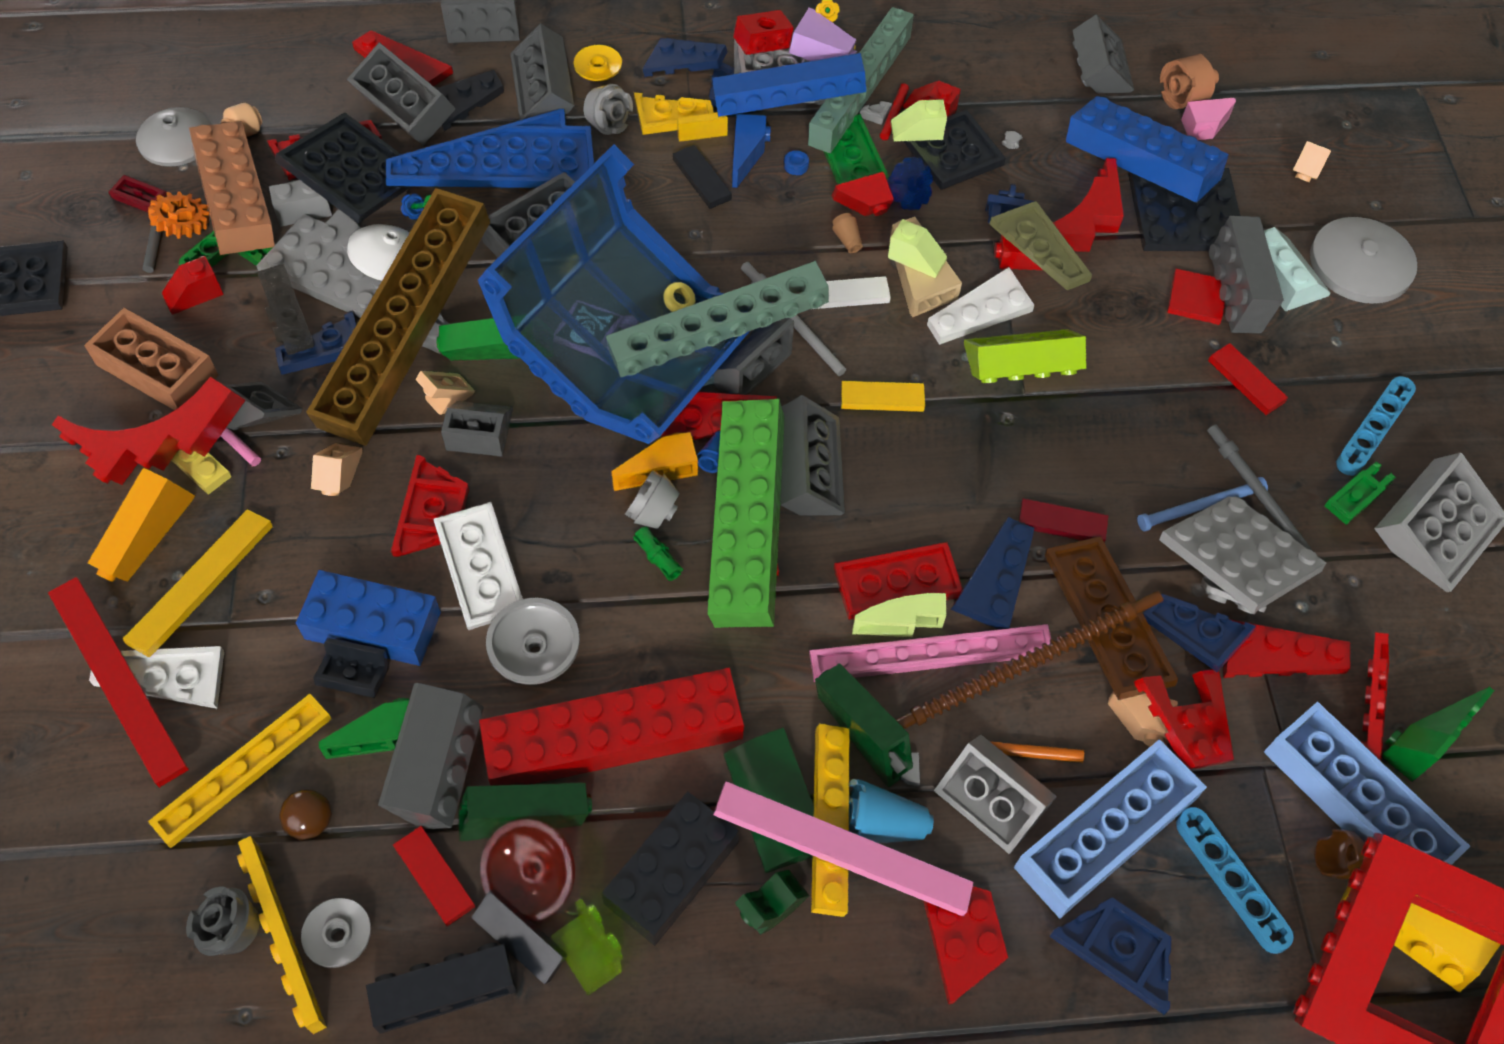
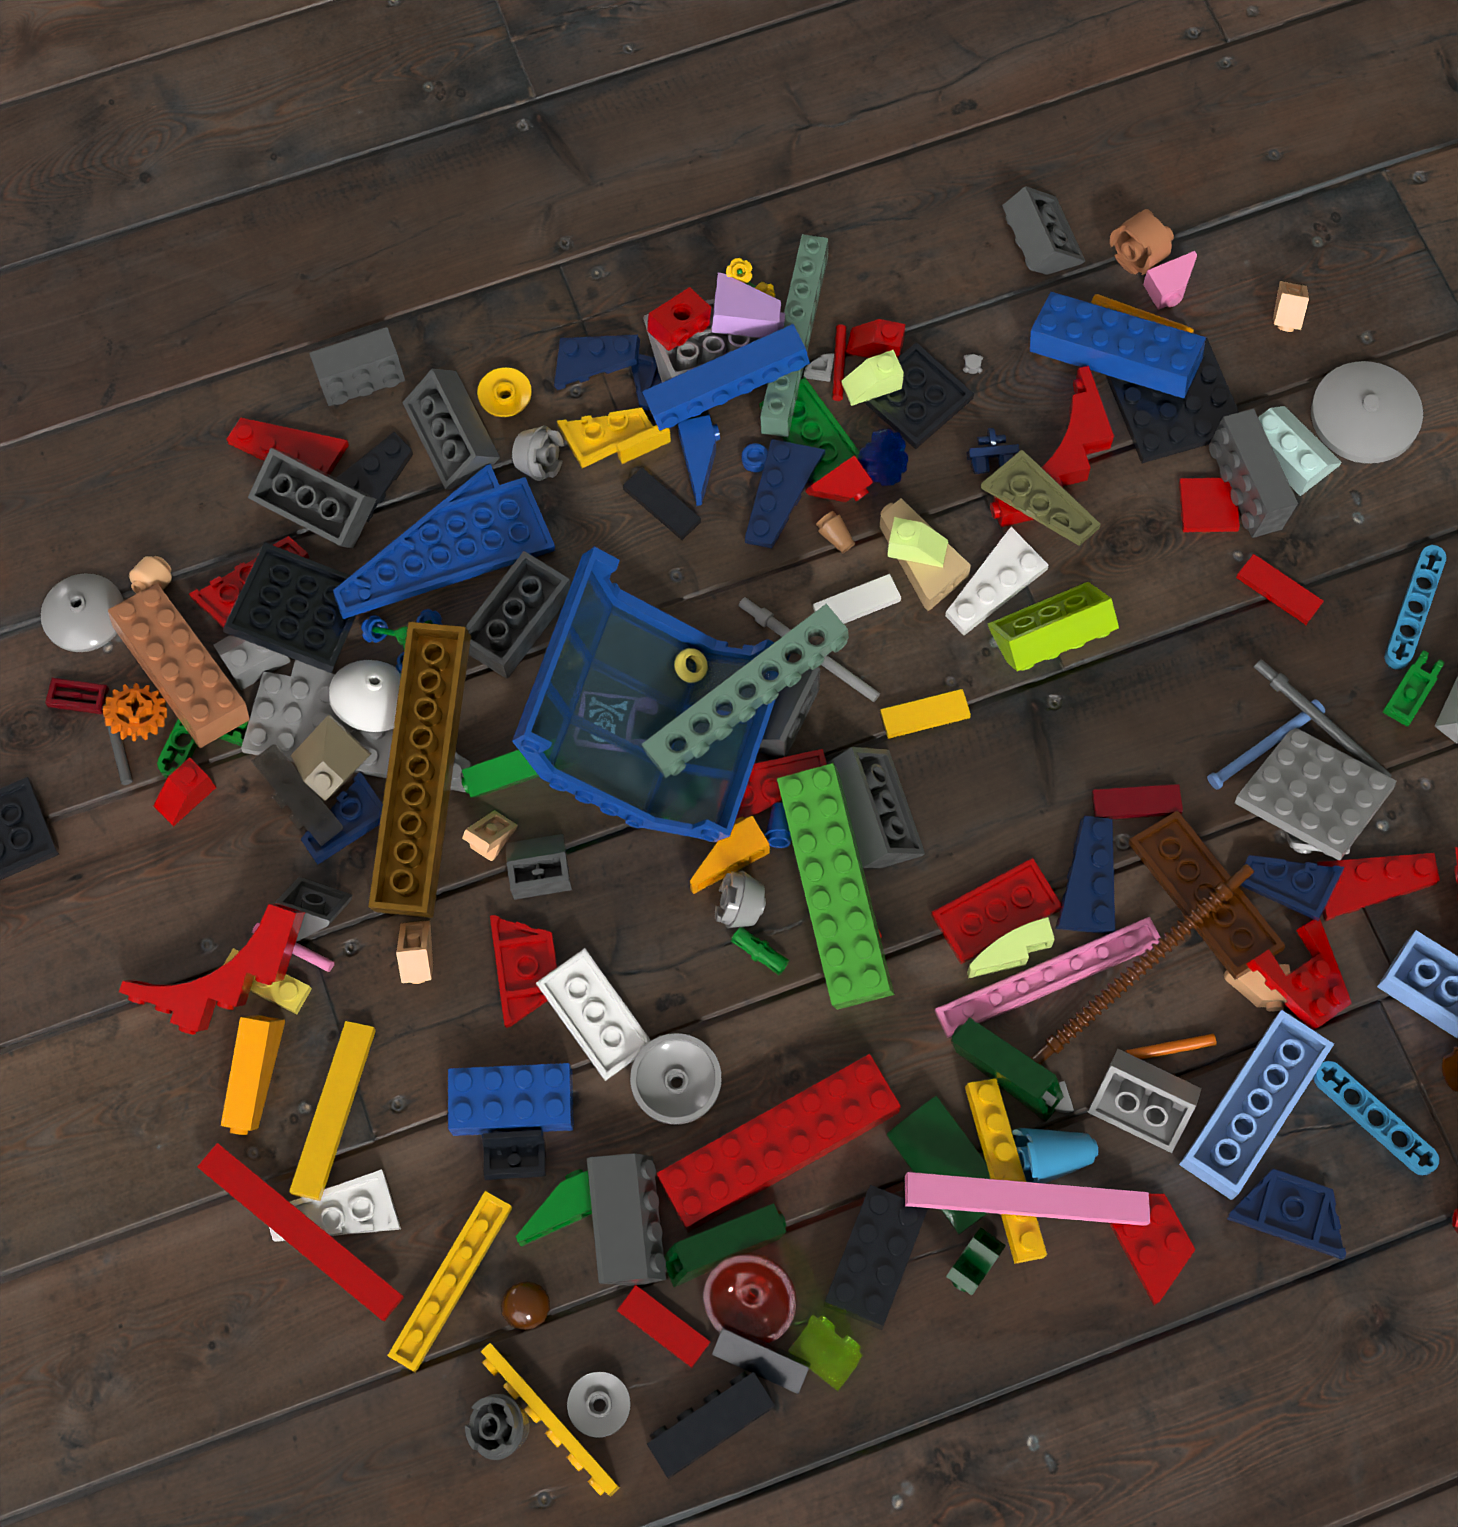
camera: 10 degrees left, 10 degrees up
(150, 359) = (184, 890): nougat brick -> none
(327, 289) = (329, 757): none -> dark tan slope
(808, 189) = (780, 489): none -> dark blue wing

